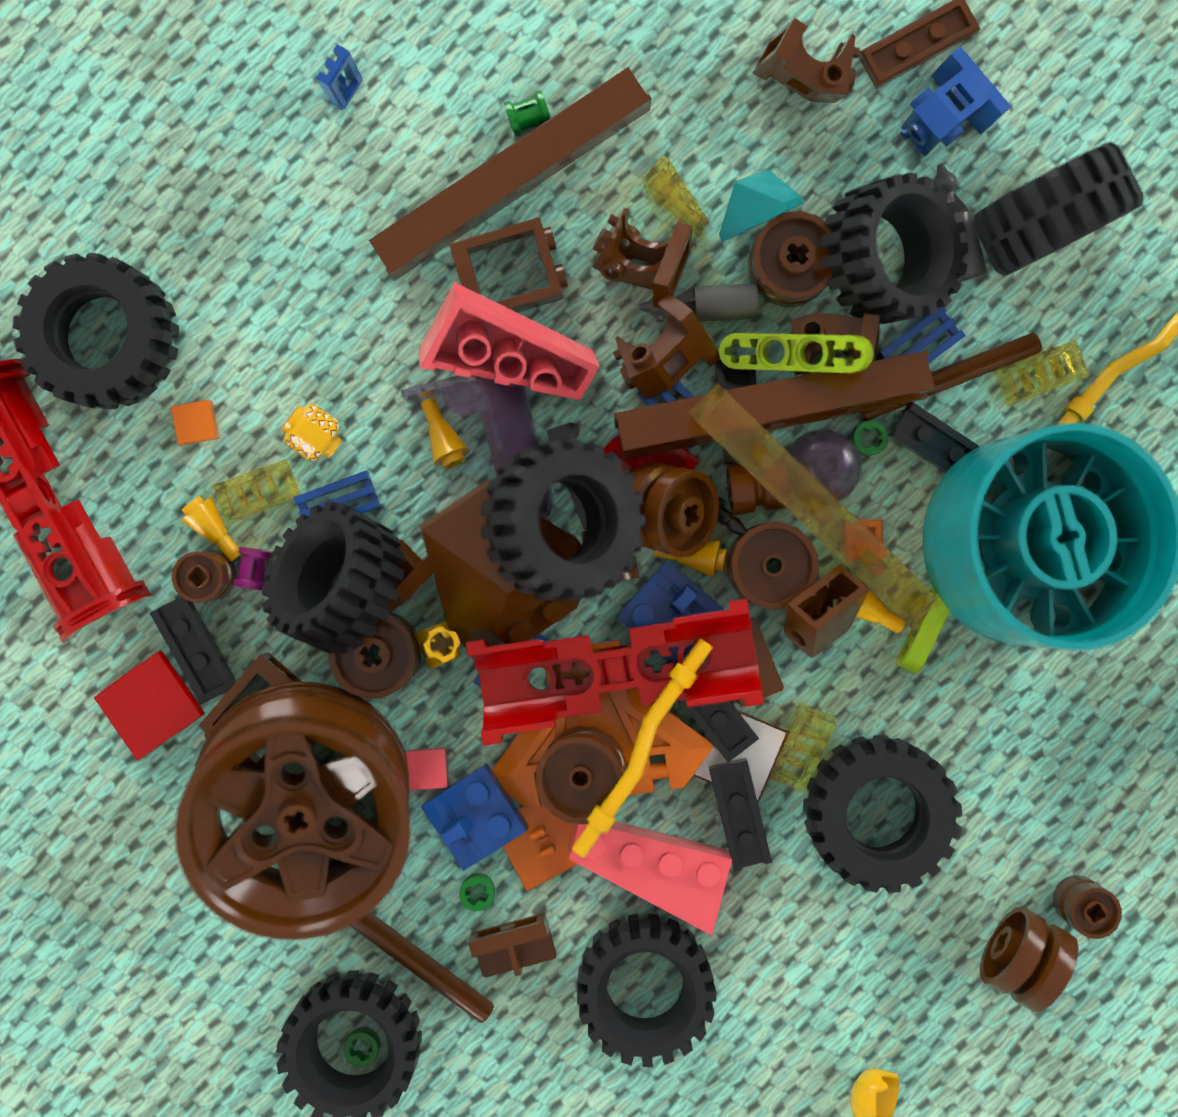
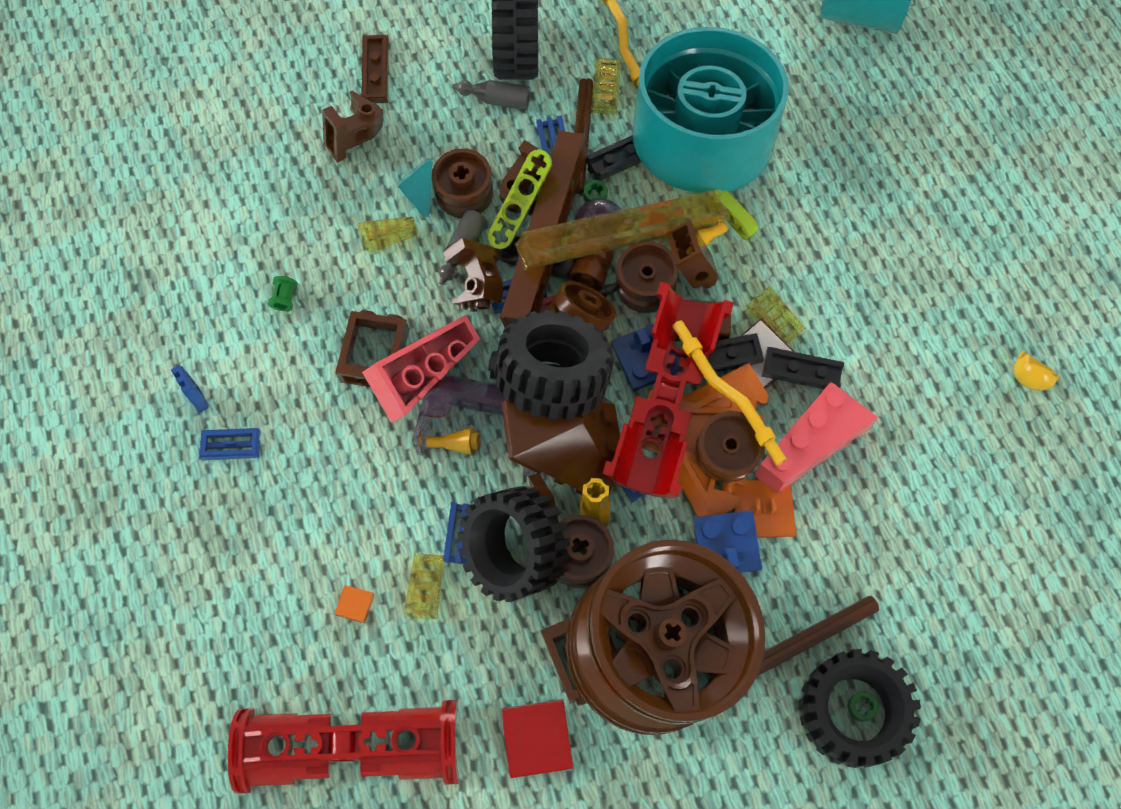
camera: 60 degrees left, 20 degrees down
(47, 320) = (222, 612): black tyre -> none
(193, 648) = (512, 683): black hinge -> none
(203, 576) = (464, 644): reddish brown wheel -> none
(206, 521) = (427, 628): yellow cone -> none
(246, 565) = (477, 611): magenta bush -> none
(312, 432) = (406, 523): yellow head -> none
(324, 193) = (230, 454): none -> blue tile
(481, 903) = (790, 571): green bush -> none
(511, 173) = (313, 324): reddish brown tile -> none
(513, 945) = (831, 561): reddish brown panel -> none
(624, 242) = (414, 269): reddish brown tile -> none
(645, 1035) = (922, 458): black tyre -> none
(706, 560) = (624, 317): yellow cone -> none
(922, 843) = (846, 251): black tyre -> none
(928, 241) = (488, 120): black tyre -> none
(938, 119) = (423, 70): blue tile -> none
(1029, 959) = (973, 237): reddish brown wheel -> none
(1087, 907) = (953, 194): reddish brown wheel -> none

